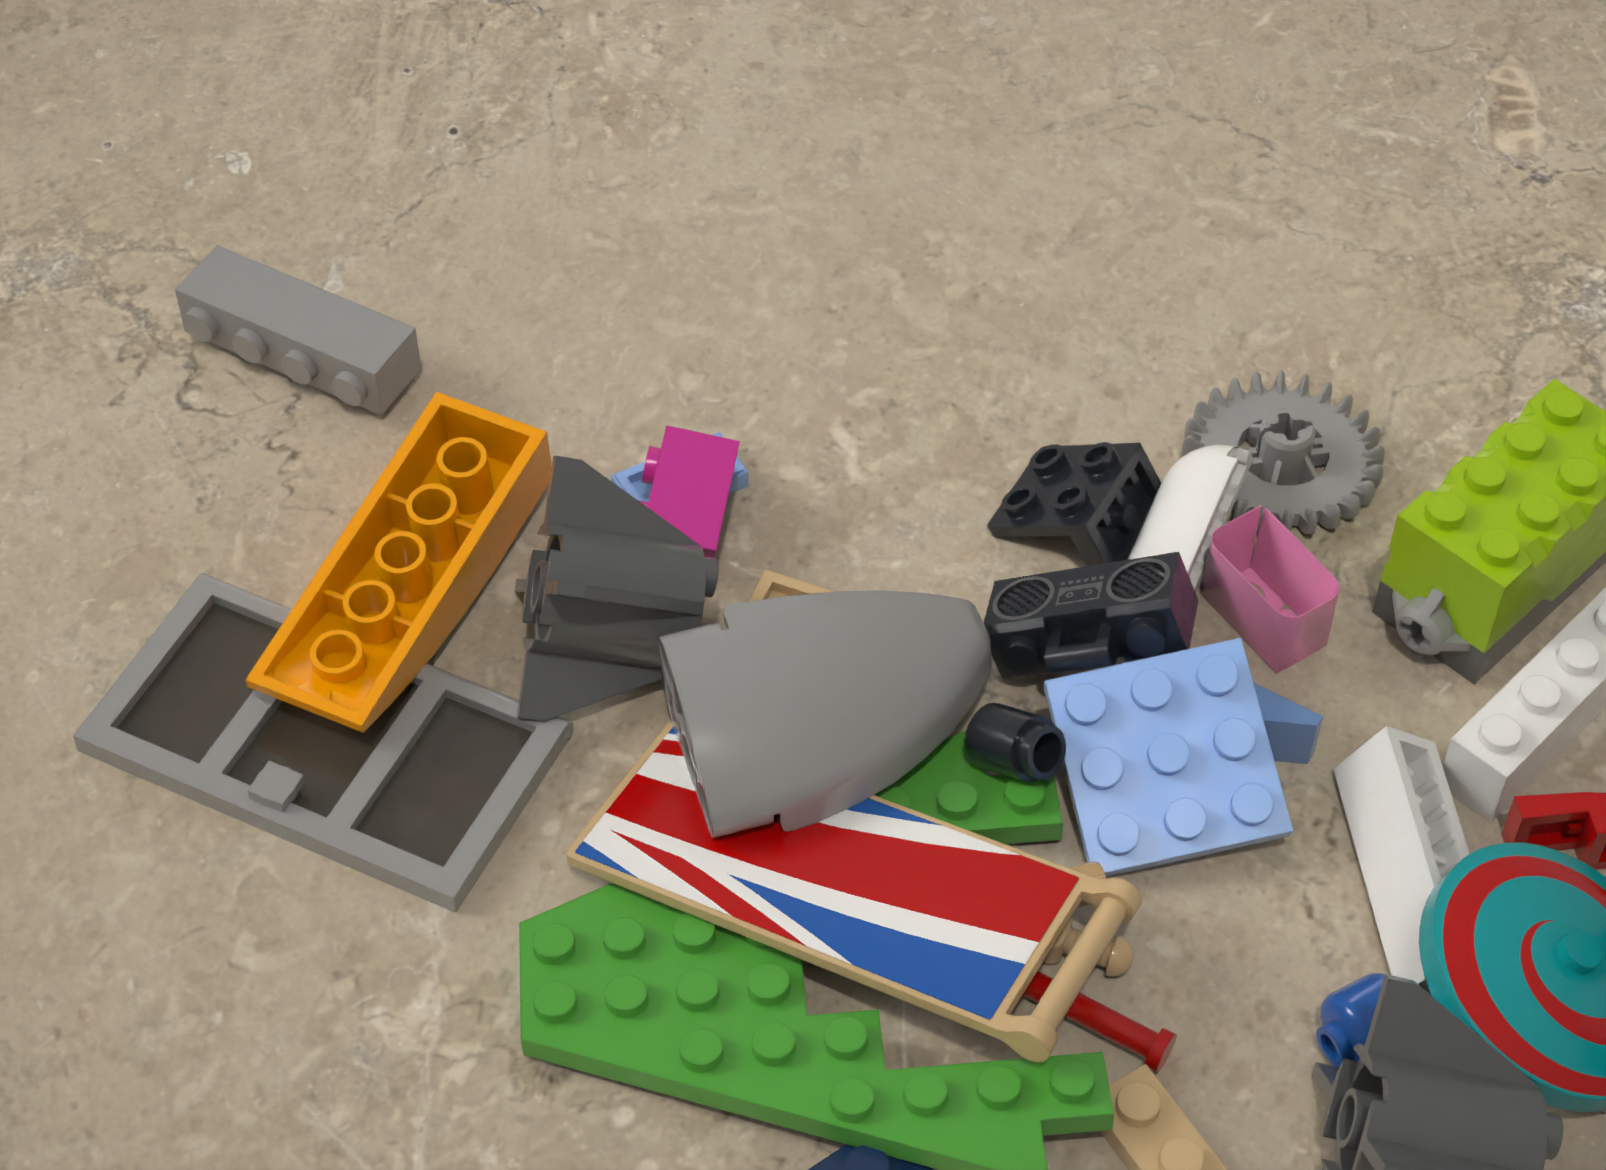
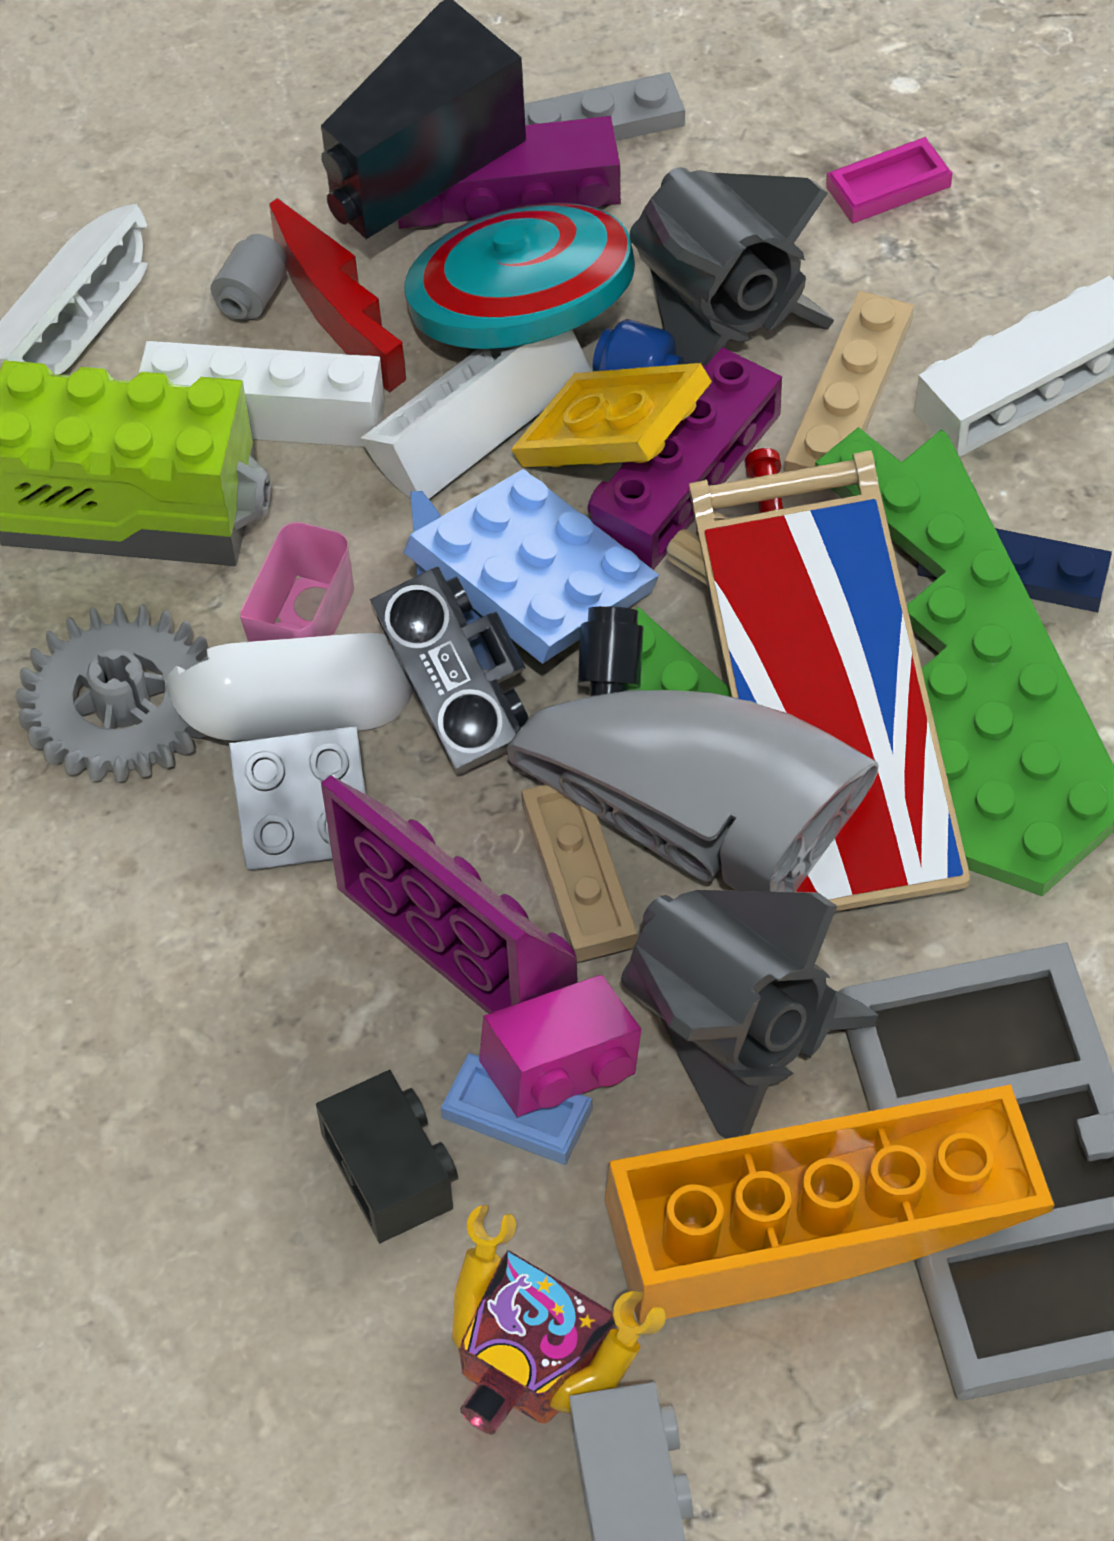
camera: 125 degrees left, 5 degrees up
(496, 362) = (532, 1336): none -> torso
(708, 373) = (386, 1155): none -> pearl dark grey brick
(863, 476) = (440, 904): none -> magenta slope
(1215, 984) = (652, 499): none -> magenta brick
(1288, 915) = (612, 416): none -> yellow plate

